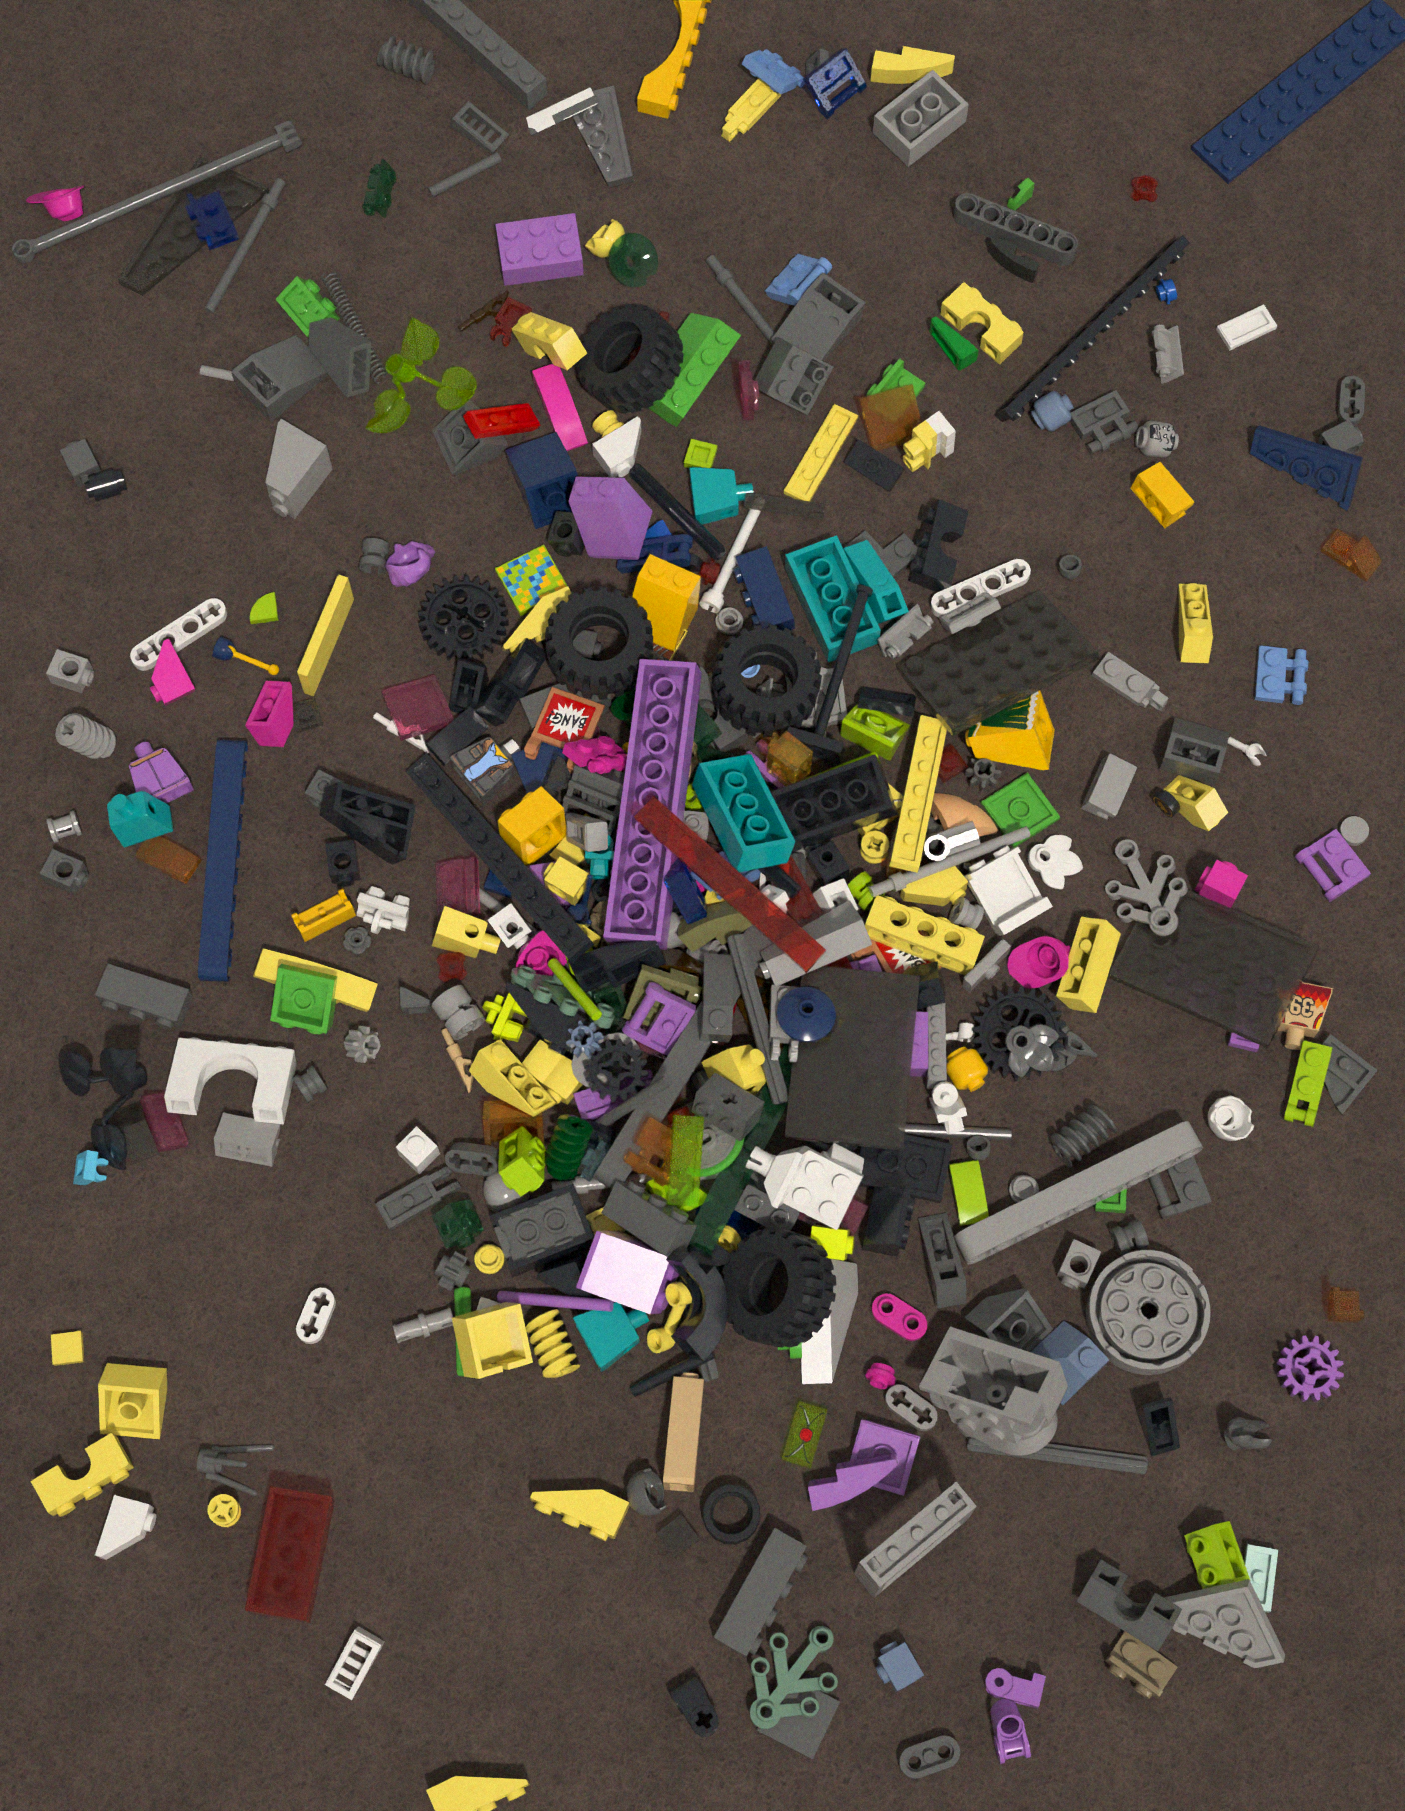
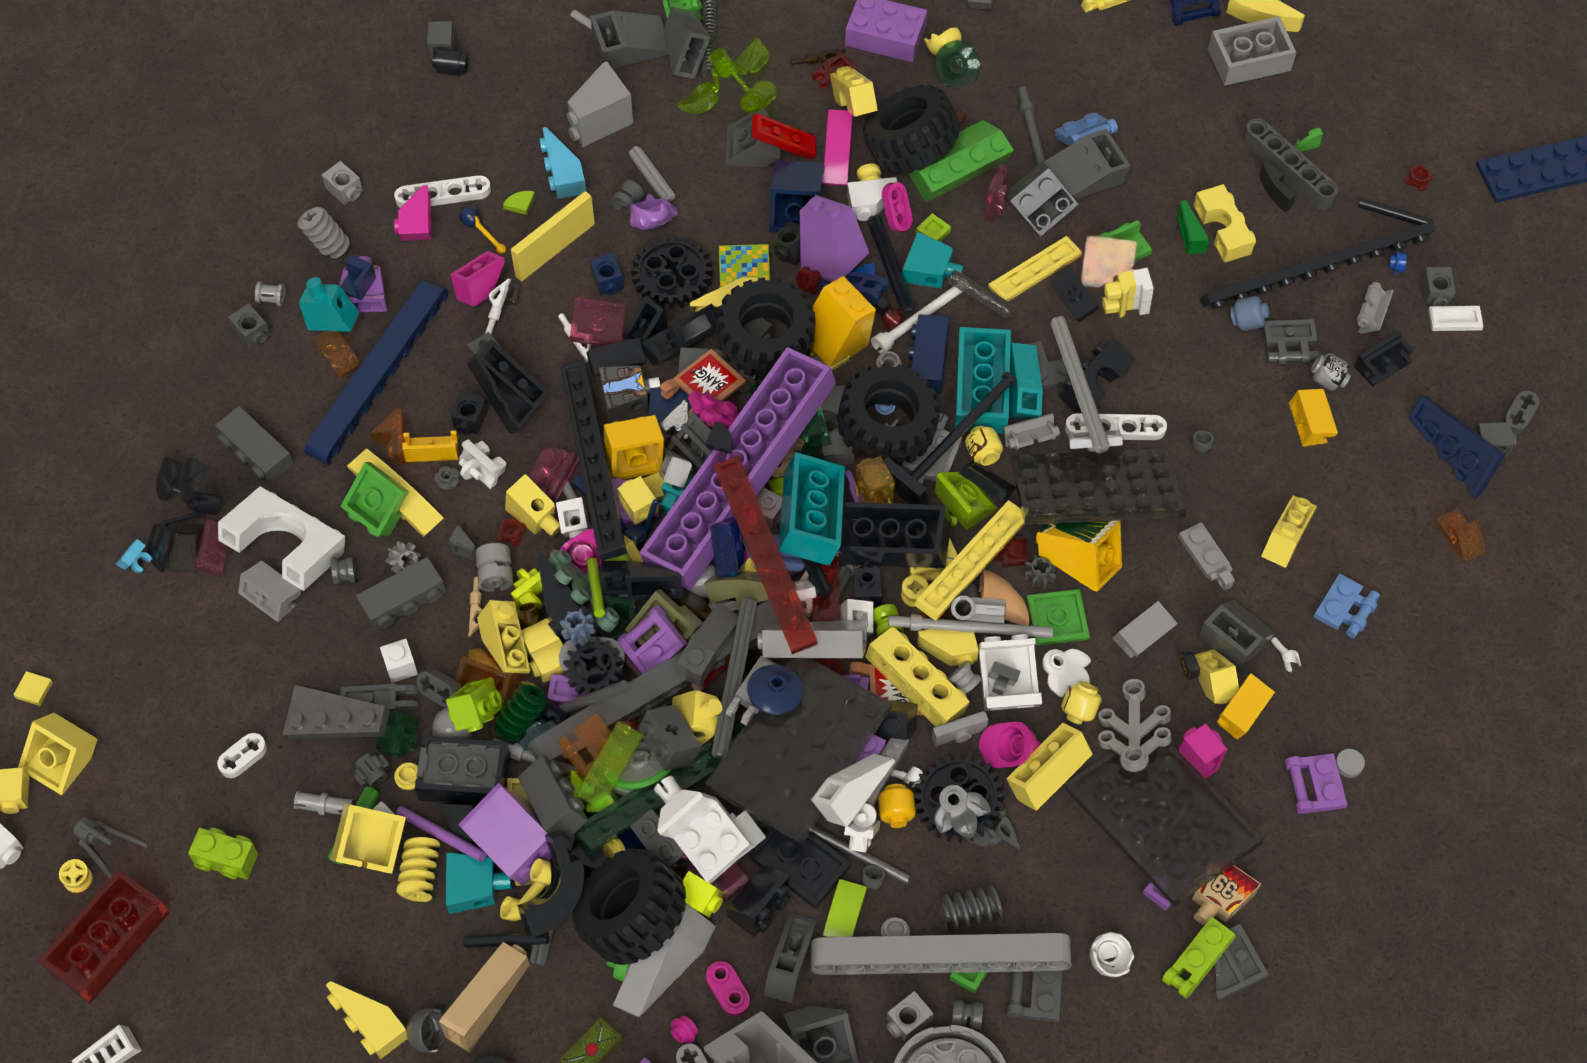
camera: 25 degrees right, 10 degrees down
(153, 772) = (359, 277): none -> dark blue panel
(275, 917) = (391, 432): none -> clear orange slope
(293, 552) = (565, 167): none -> medium azure slope
(306, 733) = (497, 304): none -> white hand
(356, 1420) = (223, 853): none -> lime brick
(380, 1238) = (328, 715): none -> flat silver wing
(381, 1082) = (401, 594): none -> dark grey brick
(383, 519) = (651, 174): none -> light grey axle
(396, 641) = (606, 266): none -> dark blue brick
(519, 1044) = (528, 613): none -> dark brown hinge
(599, 568) = (808, 280): none -> clear red plate
(624, 785) = (720, 439): none -> black tile
(654, 448) = (897, 206): none -> dark pink plate
(866, 666) = (984, 445): none -> light yellow head
(924, 1075) = (849, 789): none -> white slope
(932, 564) = (1080, 384): none -> light grey axle
(1004, 898) = (1002, 675): none -> dark grey tile
(1086, 887) = (1081, 702): none -> light yellow head
(1141, 237) = (1393, 212): none -> black bar
(1201, 403) = (1384, 359): none -> black hinge
(1217, 292) = (1438, 286): none -> dark grey brick
(1238, 821) = (1245, 706): none -> yellow hinge

